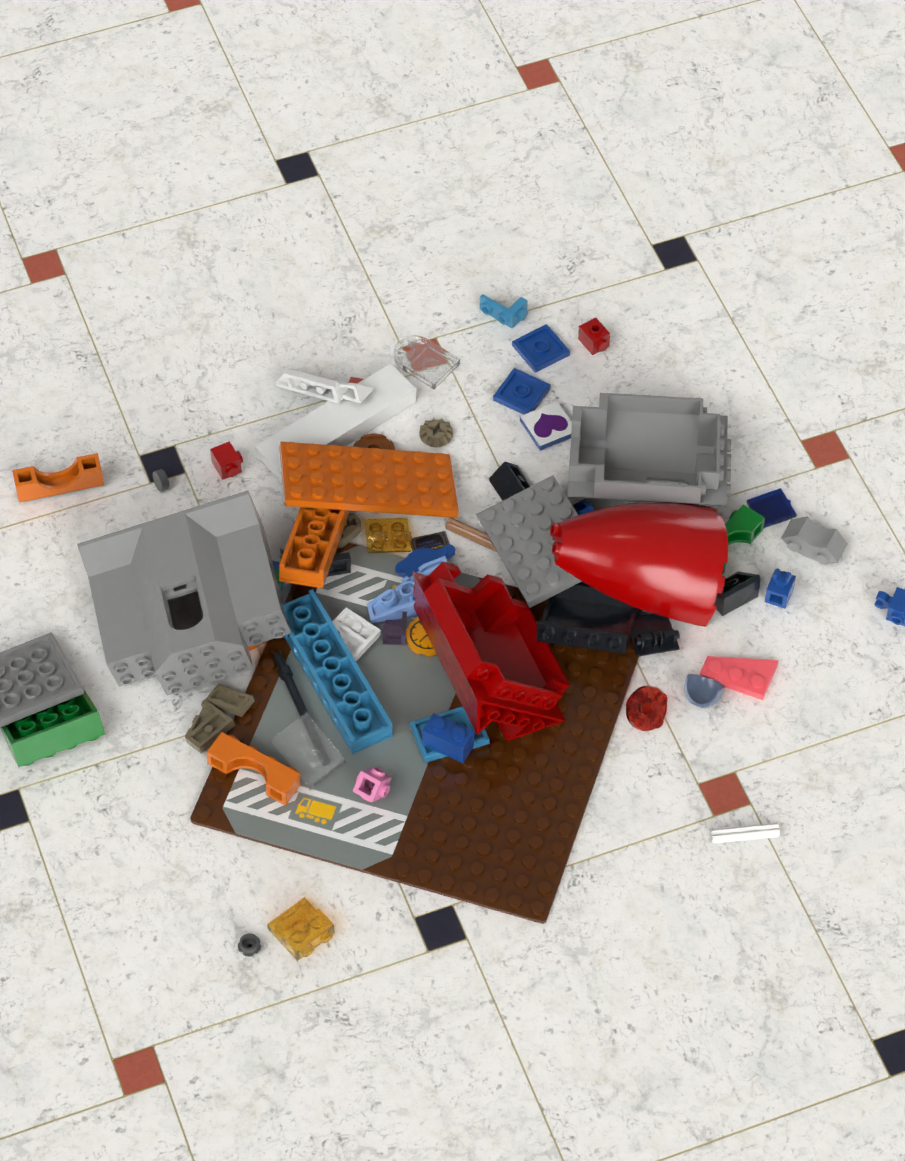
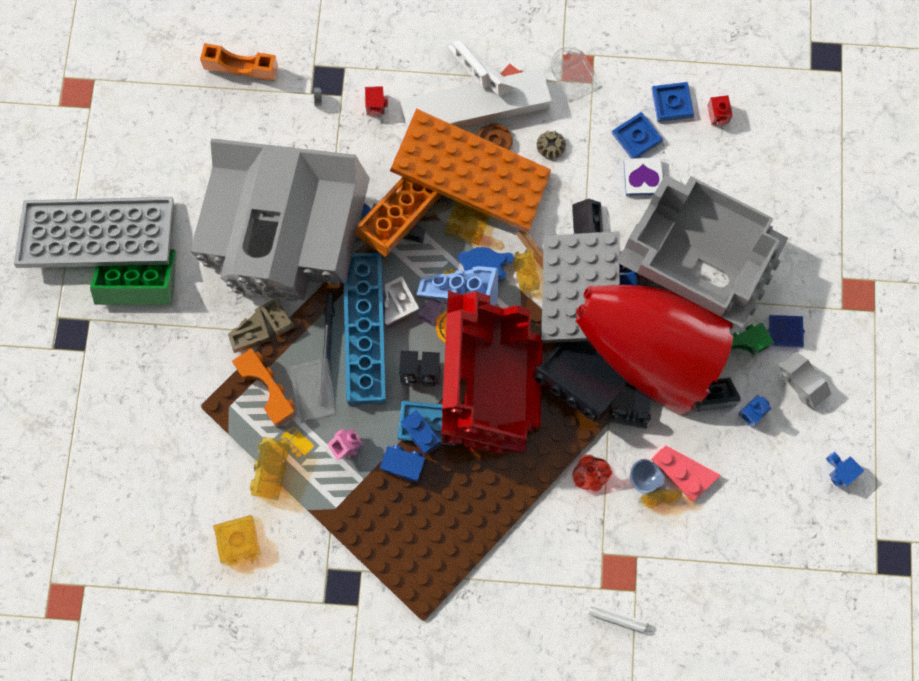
camera: 25 degrees right, 20 degrees up
(248, 939) = (187, 536): dark grey plate -> none
(301, 842) = (269, 468): none -> clear yellow brick
(410, 690) = (419, 371): none -> black piece
(430, 541) = (498, 242): black sticker -> none
(443, 778) = (402, 463): none -> blue brick
(475, 554) = (526, 271): none -> clear yellow hinge
(505, 316) = (663, 63): dark azure bracket -> none
(721, 707) = (654, 498): none -> clear yellow slope

